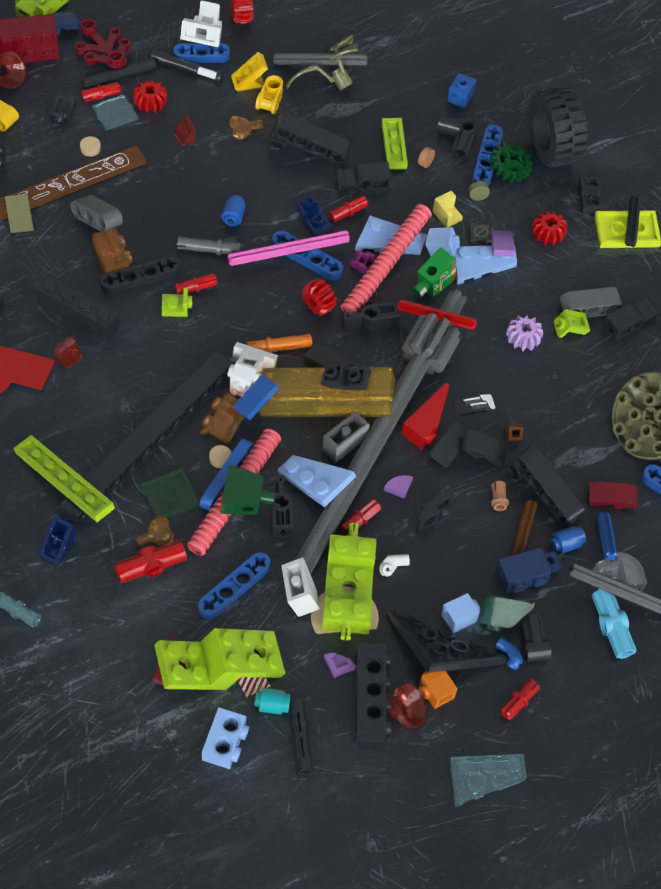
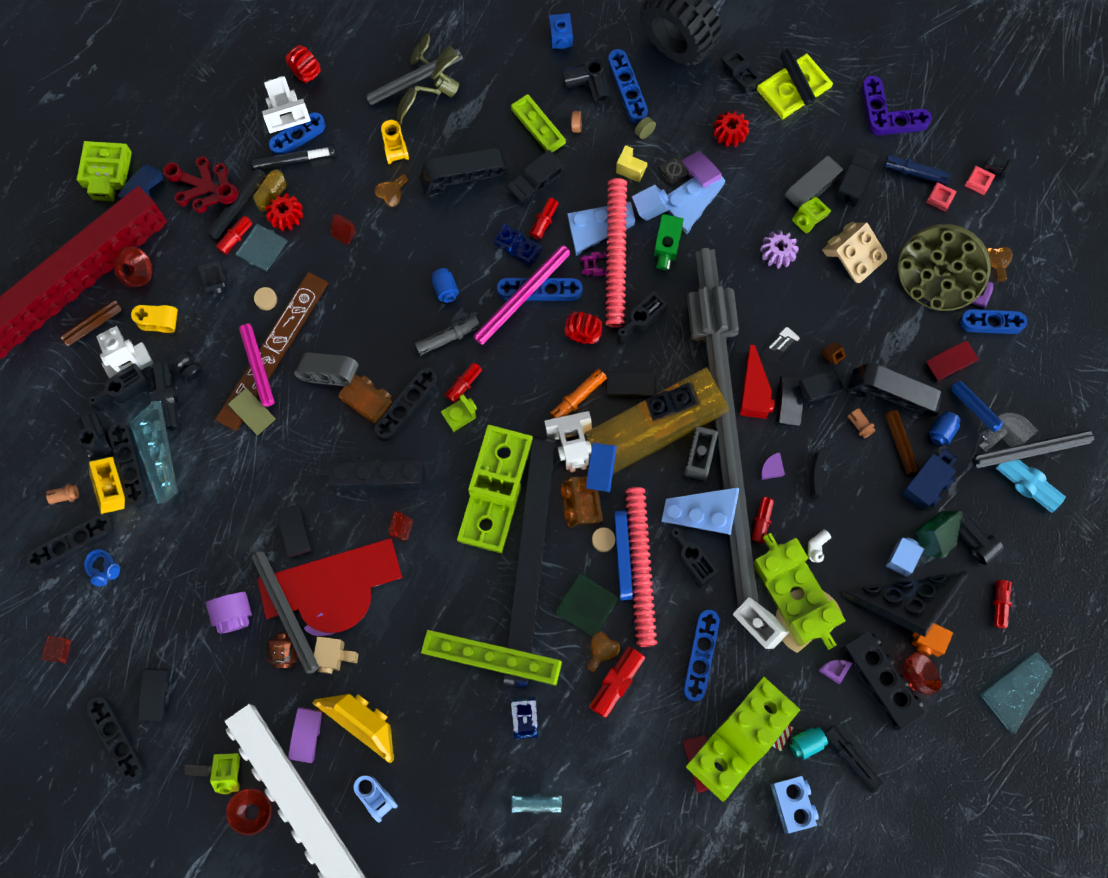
camera: 25 degrees left, 15 degrees up
(47, 183) = (256, 365): none -> dark pink axle
(157, 72) = (271, 186): none -> clear yellow arm
(160, 366) = (494, 488): none -> lime bracket
(244, 492) = (657, 568): dark green torso -> none
(250, 73) = (359, 131): yellow slope -> none
(418, 309) = (686, 287): red axle -> none
(511, 162) = (654, 81): dark green gear -> none
(512, 651) = (968, 563): blue arm -> none
(590, 371) = (857, 250): none -> tan bracket

